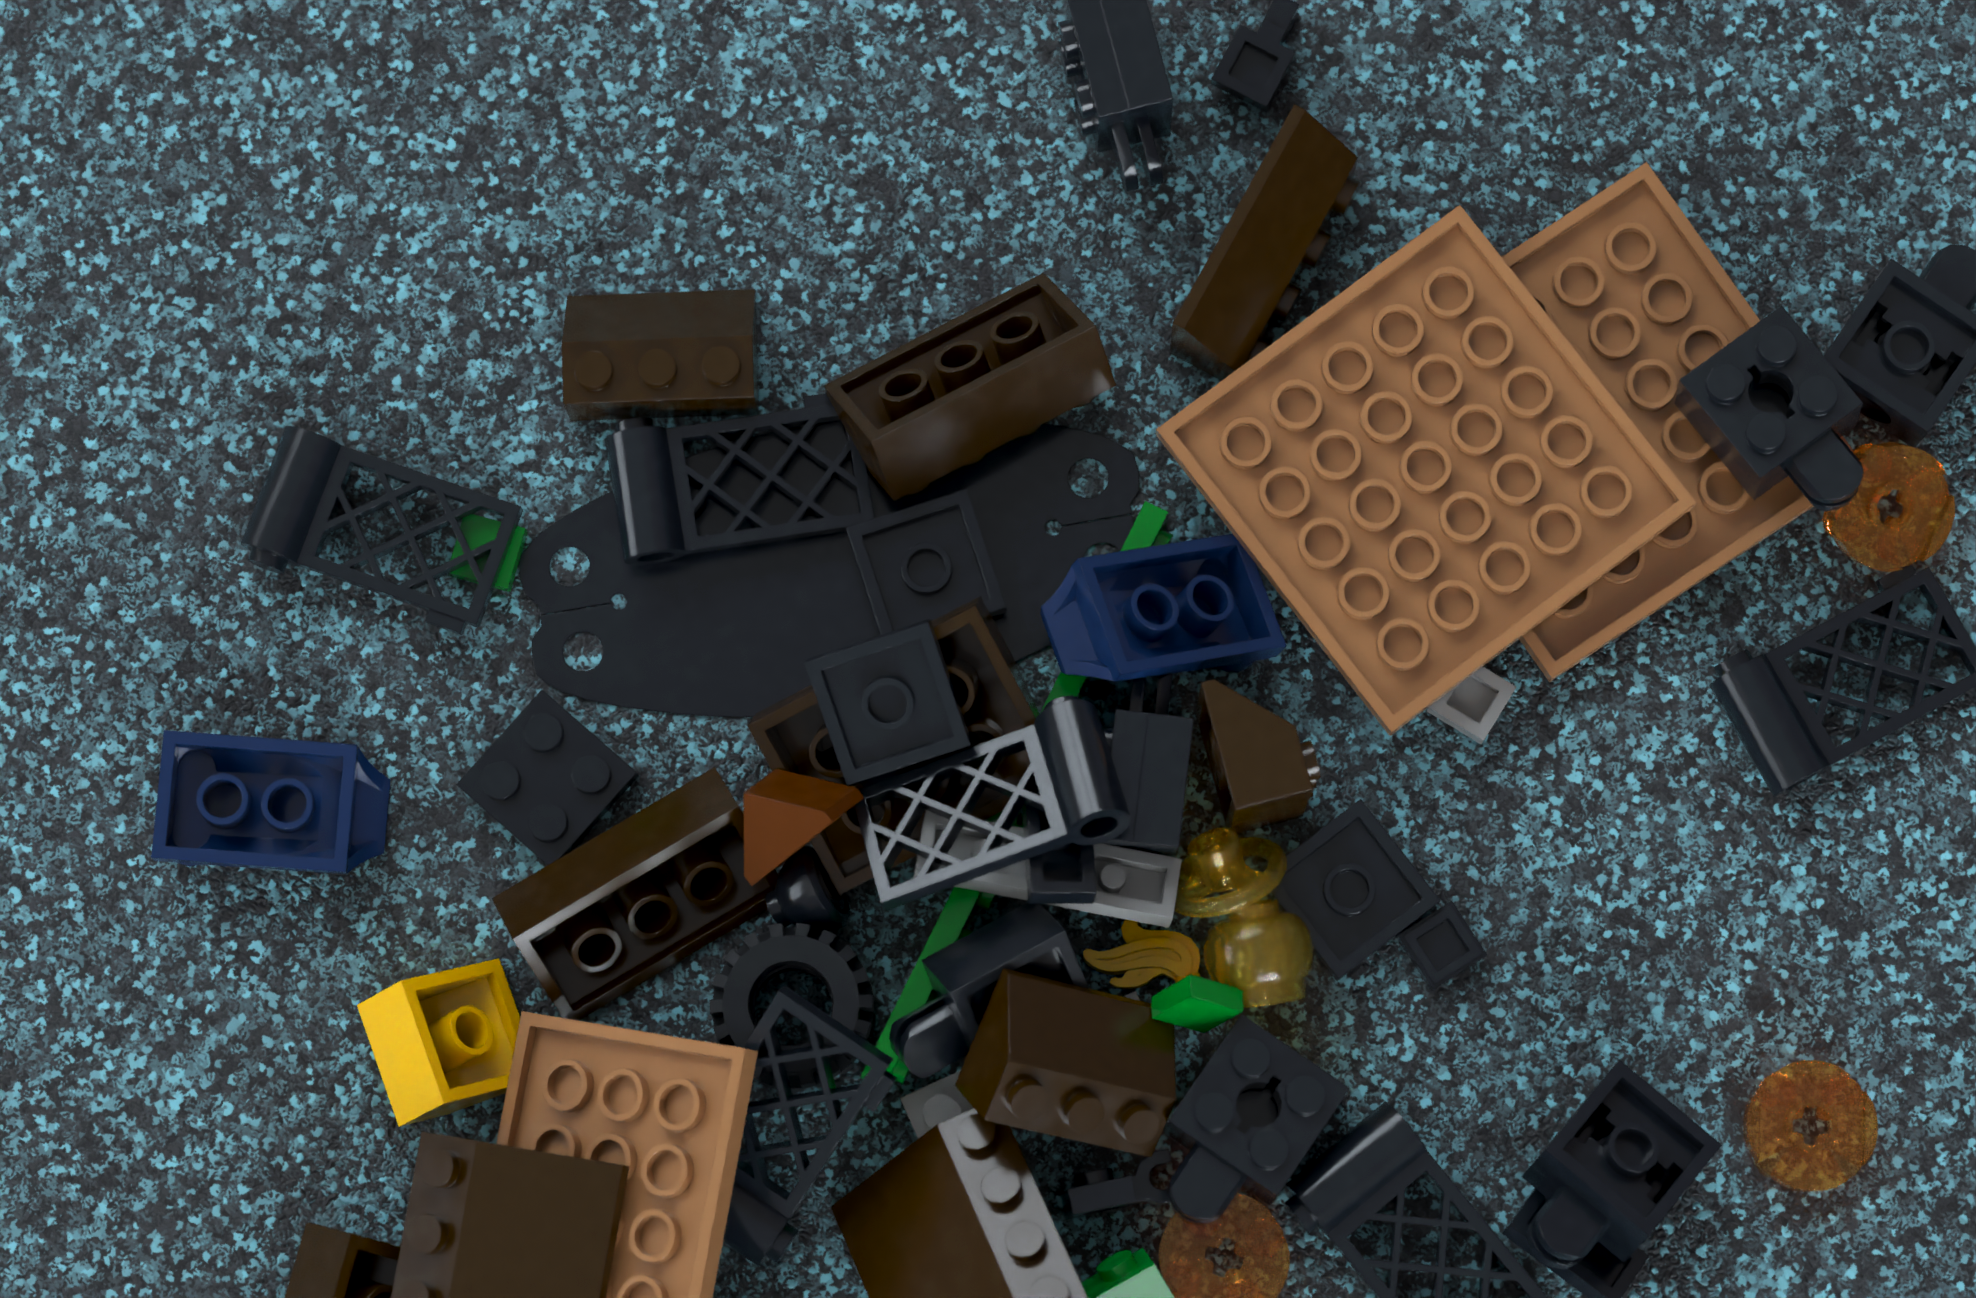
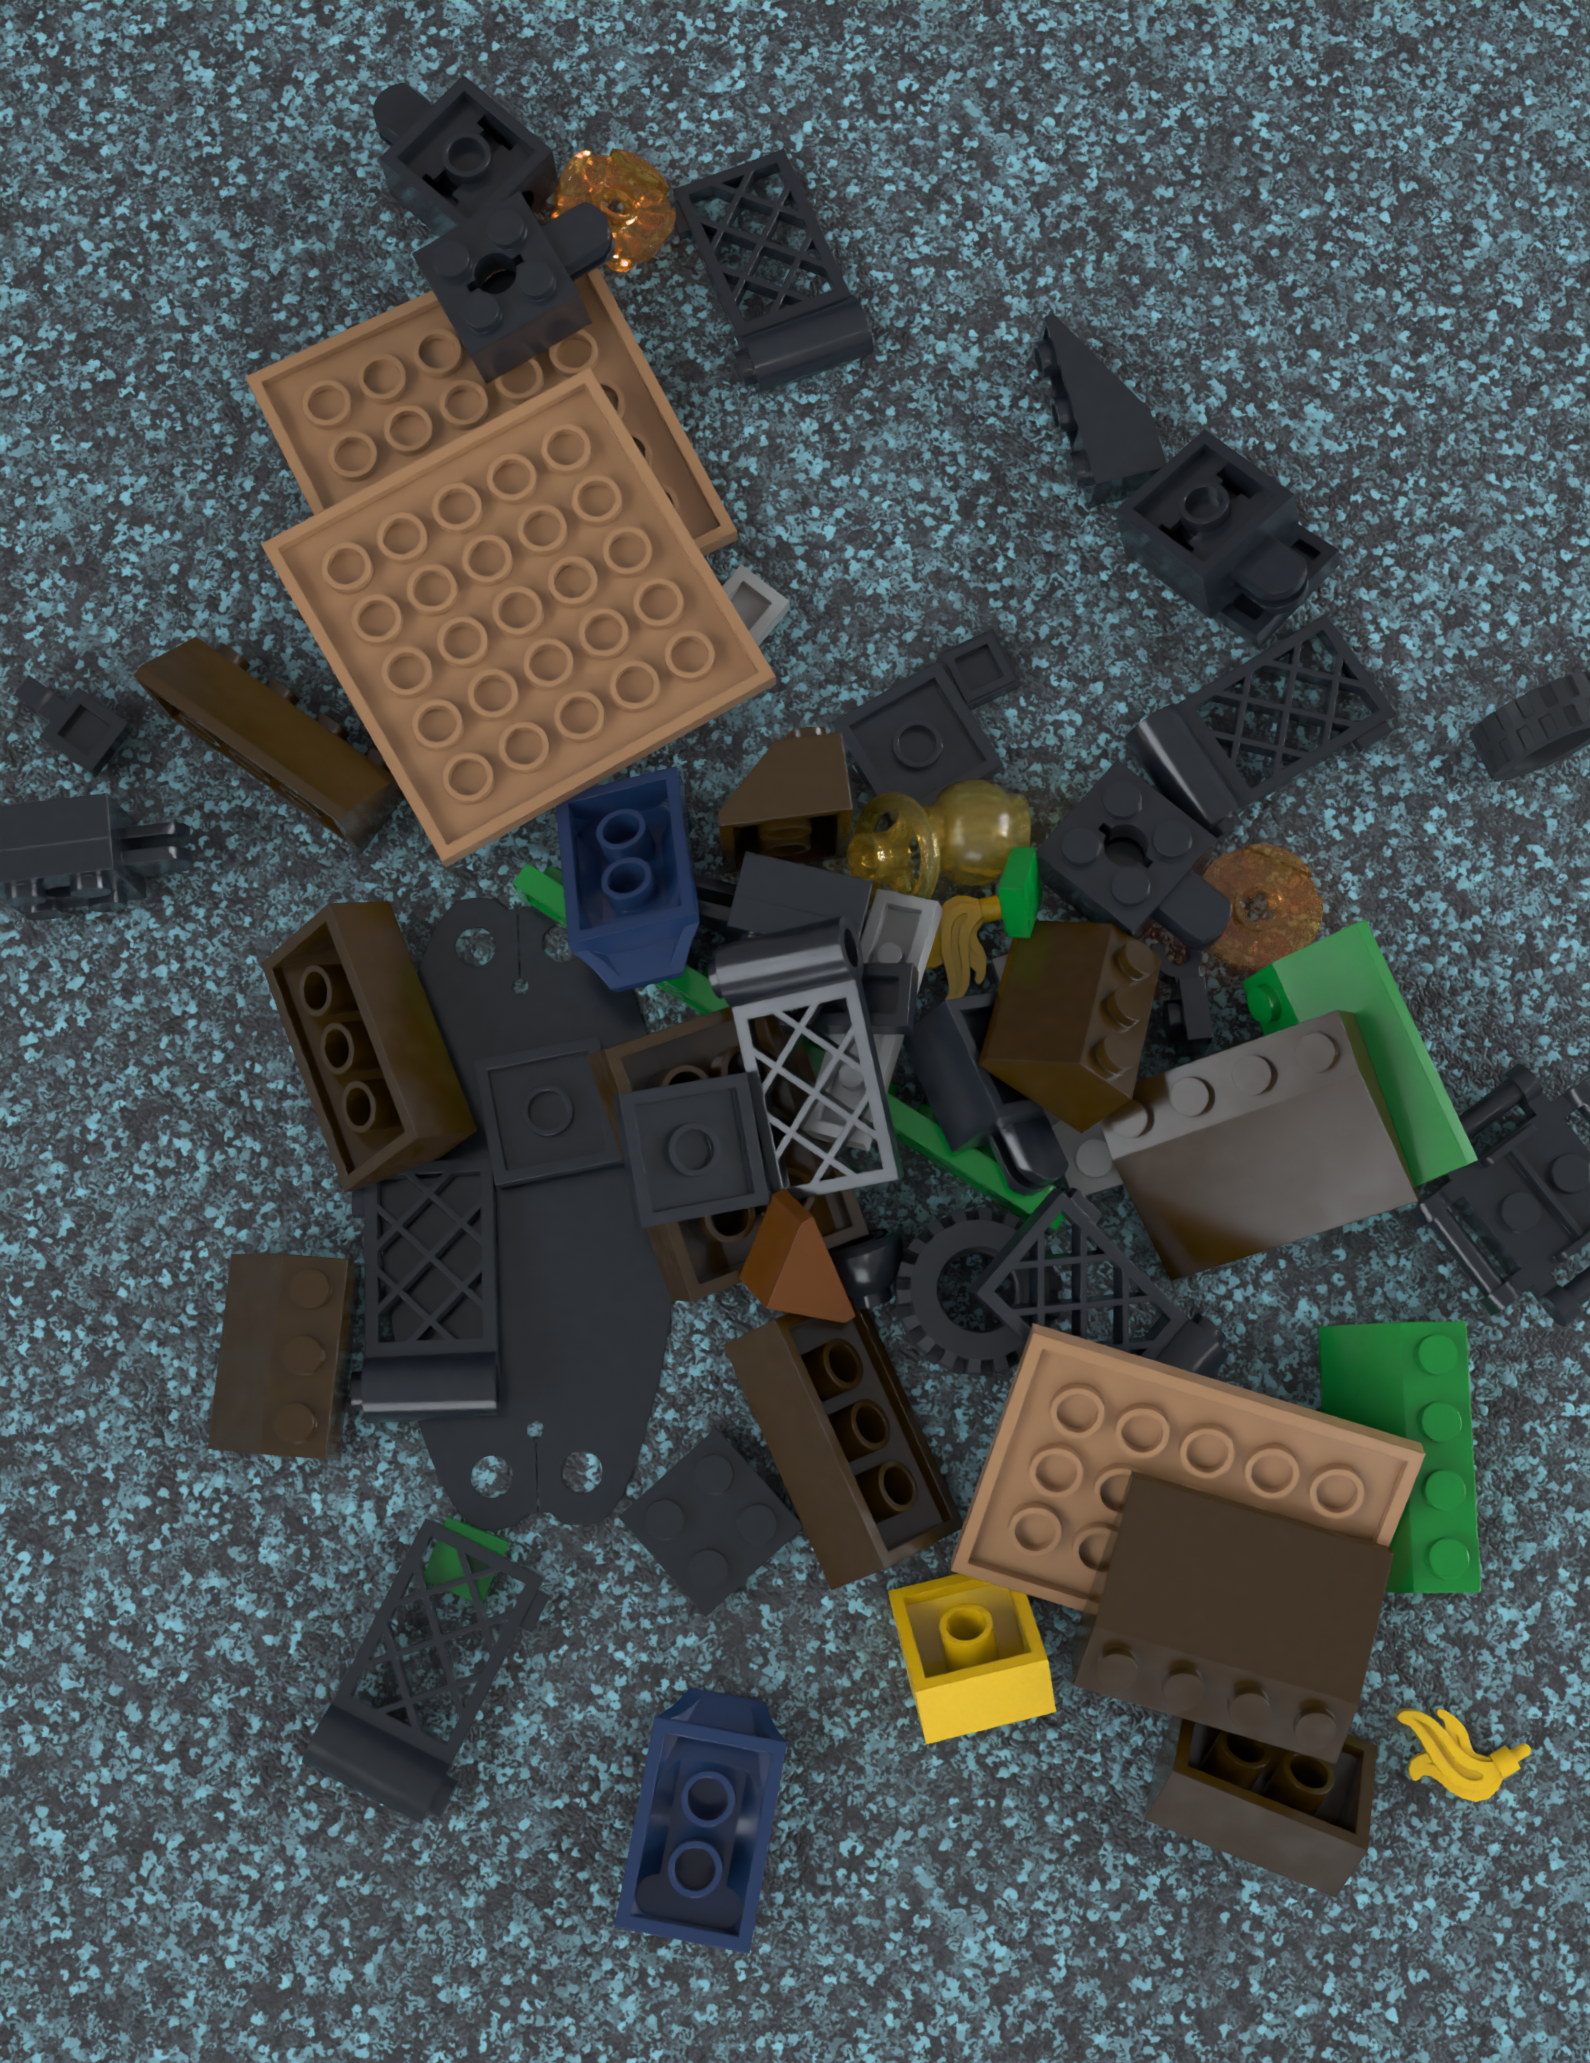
camera: 90 degrees left, 0 degrees up
(1721, 1051) = (1104, 421): none -> black slope
(1836, 1100) = (1211, 346): clear orange plate -> none

